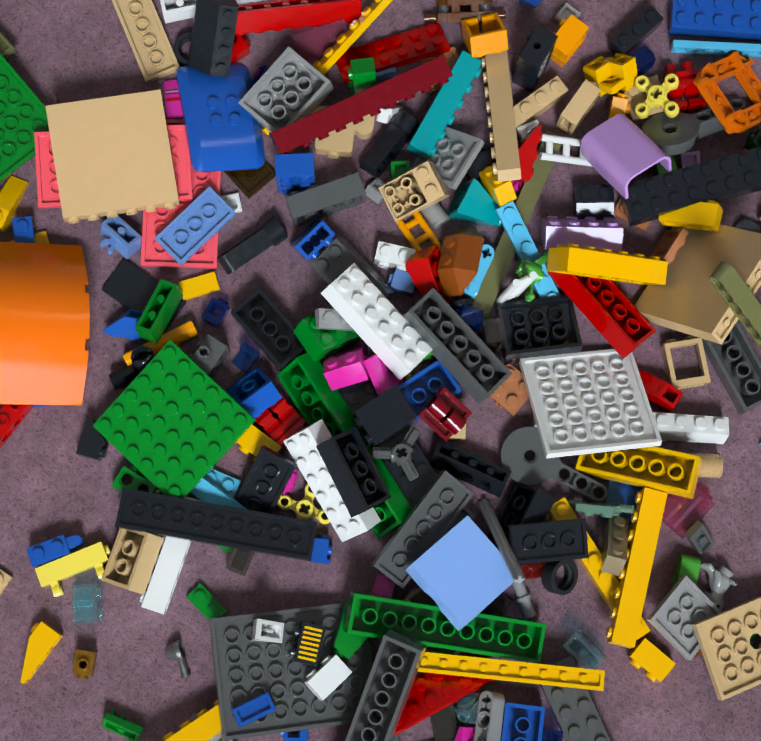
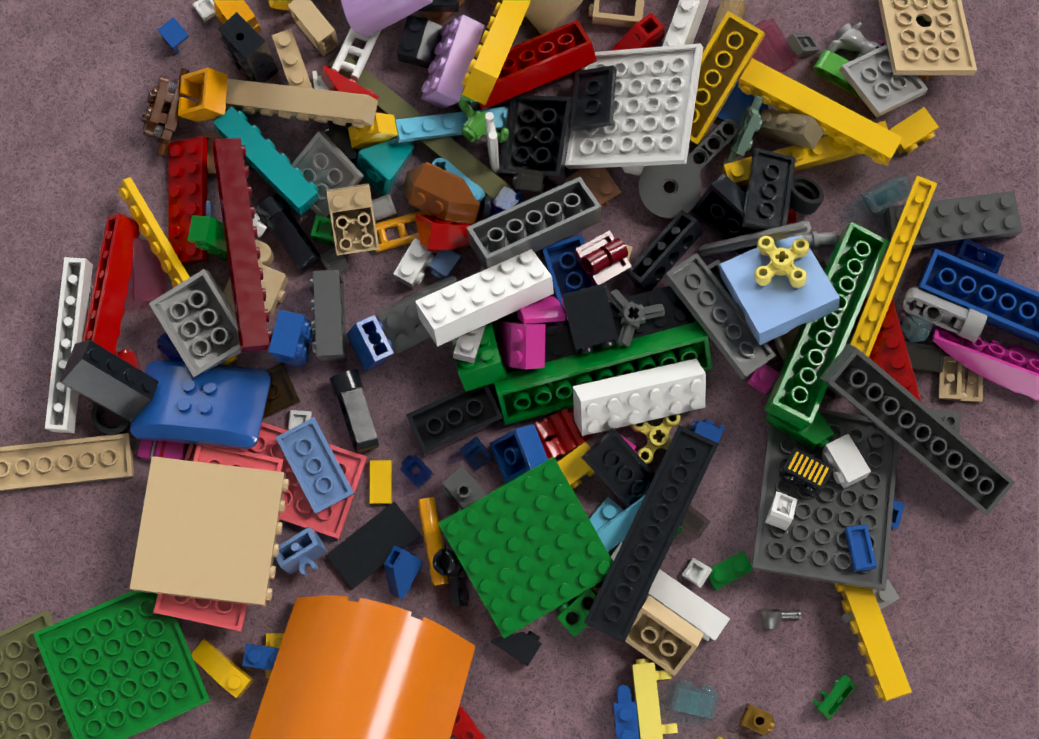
camera: 65 degrees left, 0 degrees up
(159, 311) = (399, 530): green brick -> none
(196, 576) = (696, 572): none -> white tile
(353, 471) = (641, 367): black brick -> none
(480, 572) = (796, 276): none -> light yellow gear
(587, 365) = (593, 98): none -> black plate

